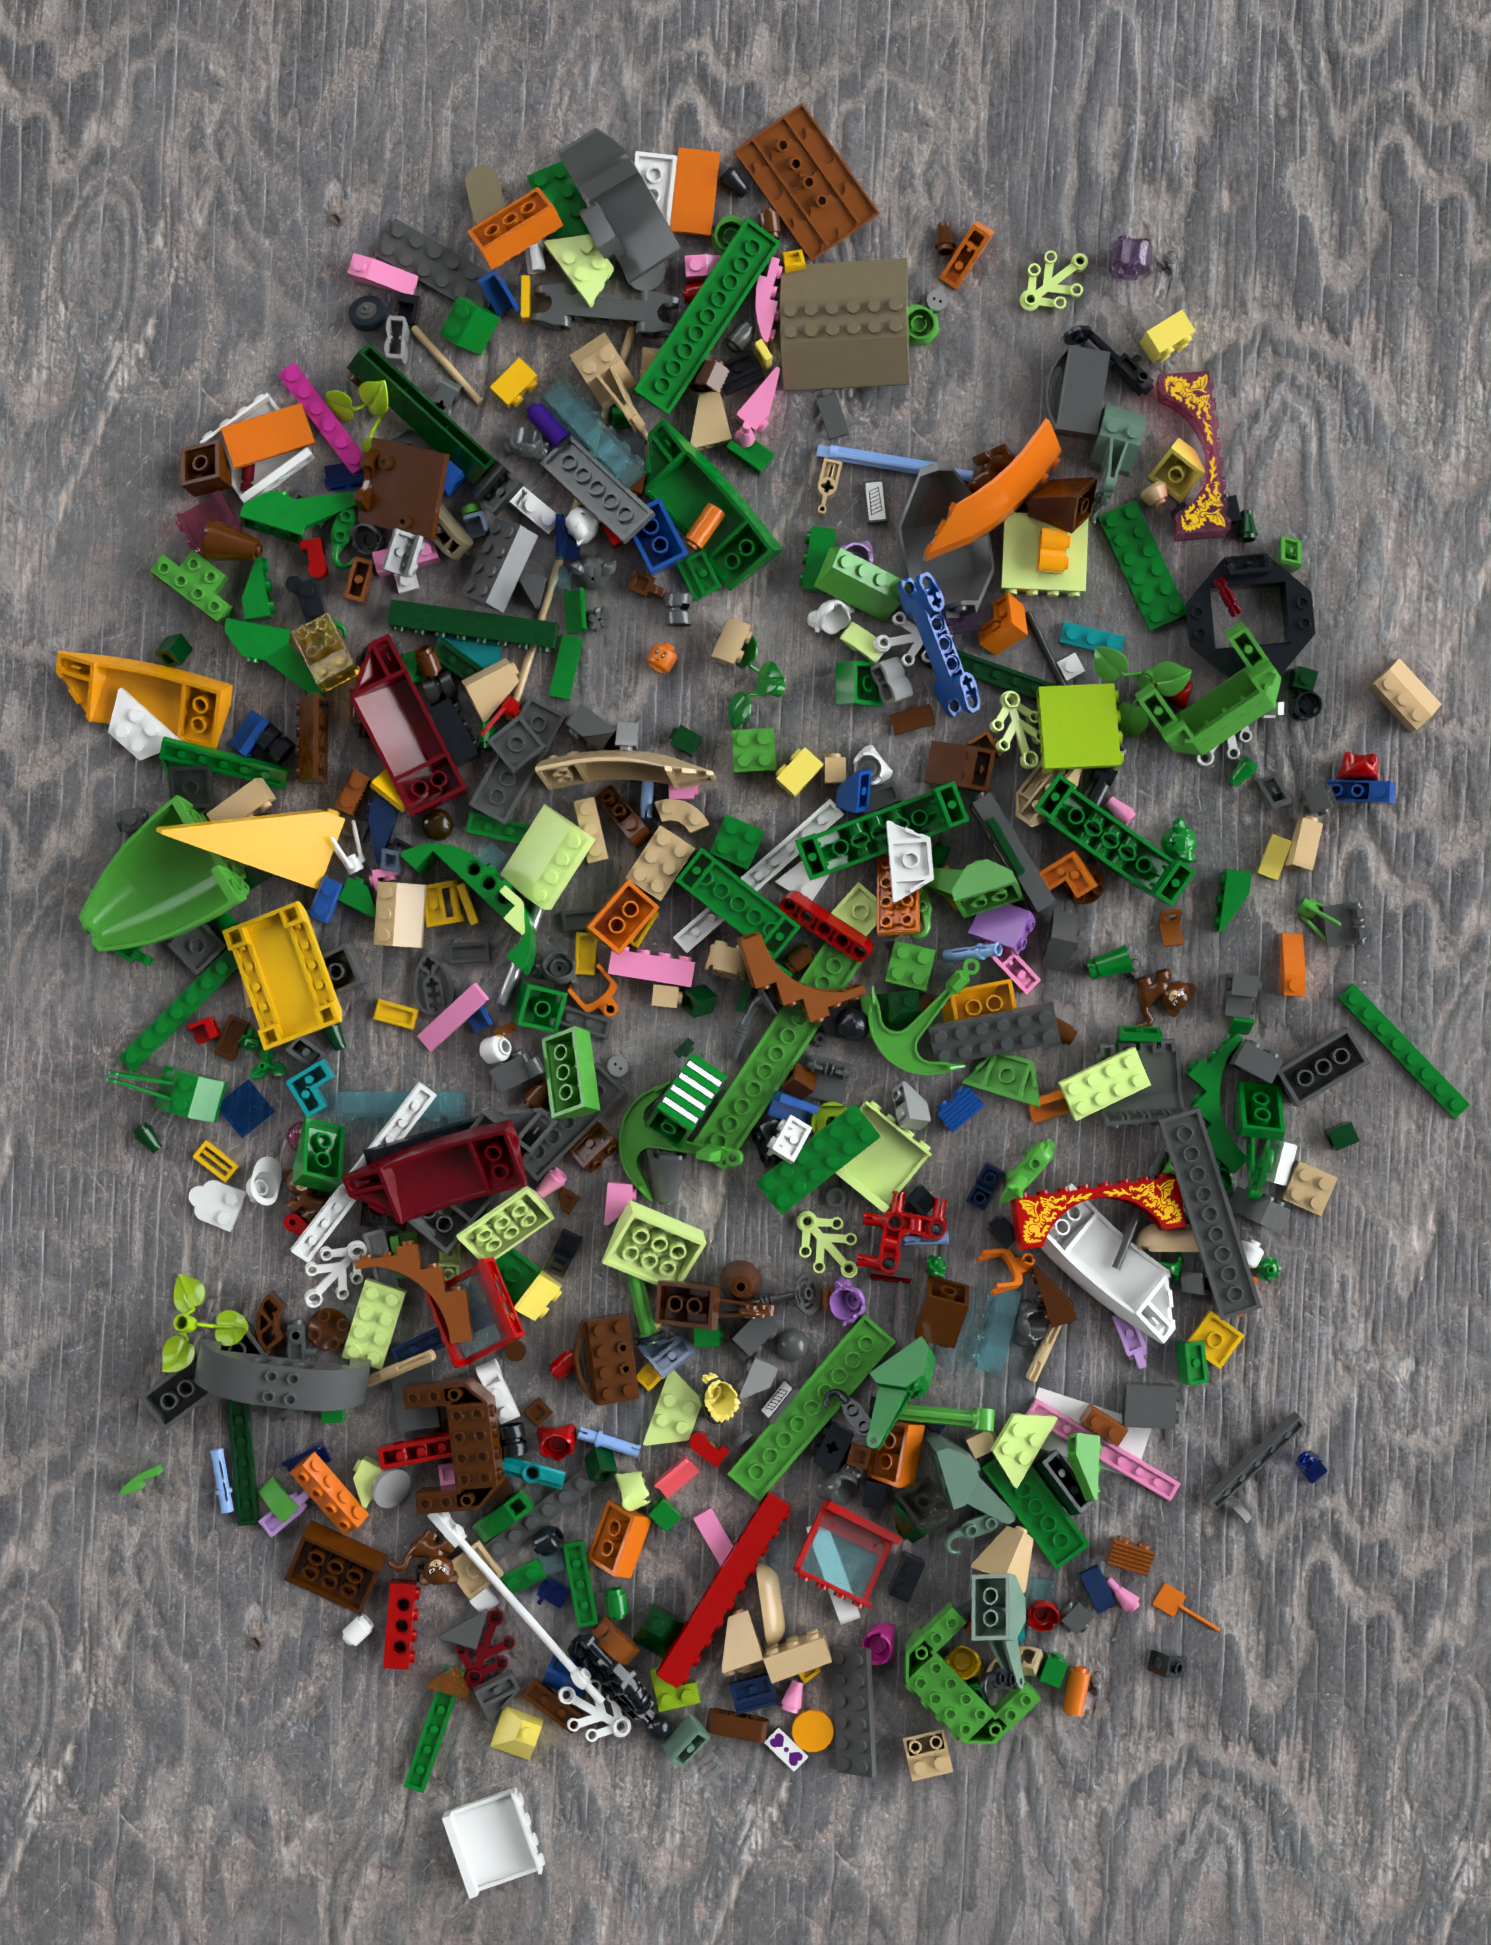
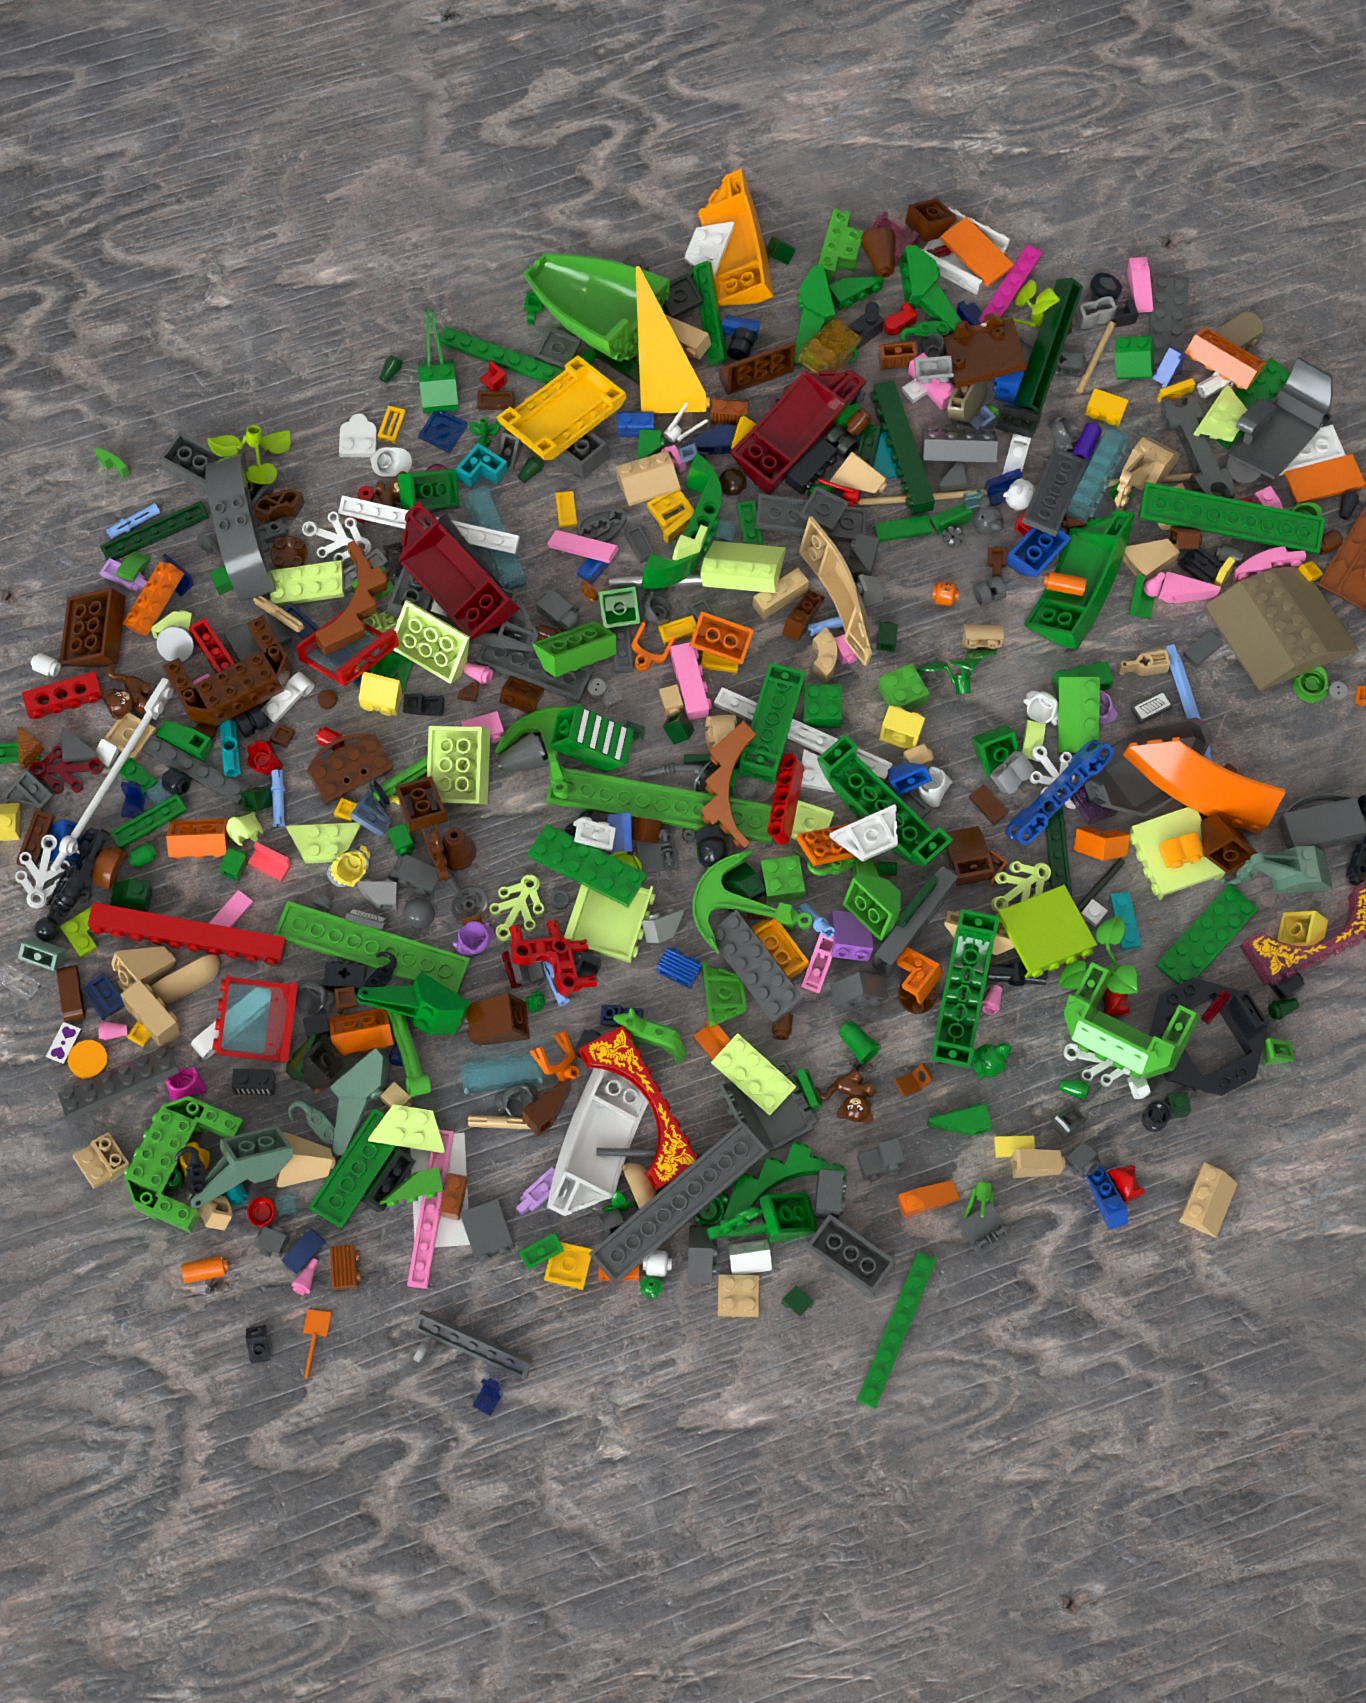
camera: 65 degrees right, 20 degrees down
(250, 1041) = (497, 409): green plant -> none
(495, 1049) = (570, 588): white head -> none
(660, 863) = (776, 649): tan brick -> none
(699, 575) = (1025, 597): green plate -> none
(707, 1449) = (302, 877): red leg -> none
(799, 958) = (749, 791): reddish brown brick -> none
(1052, 1669) = (217, 1240): green brick -> none
(1155, 494) = (1271, 920): tan cone -> none
(1240, 1025) = (855, 1175): green slope -> none

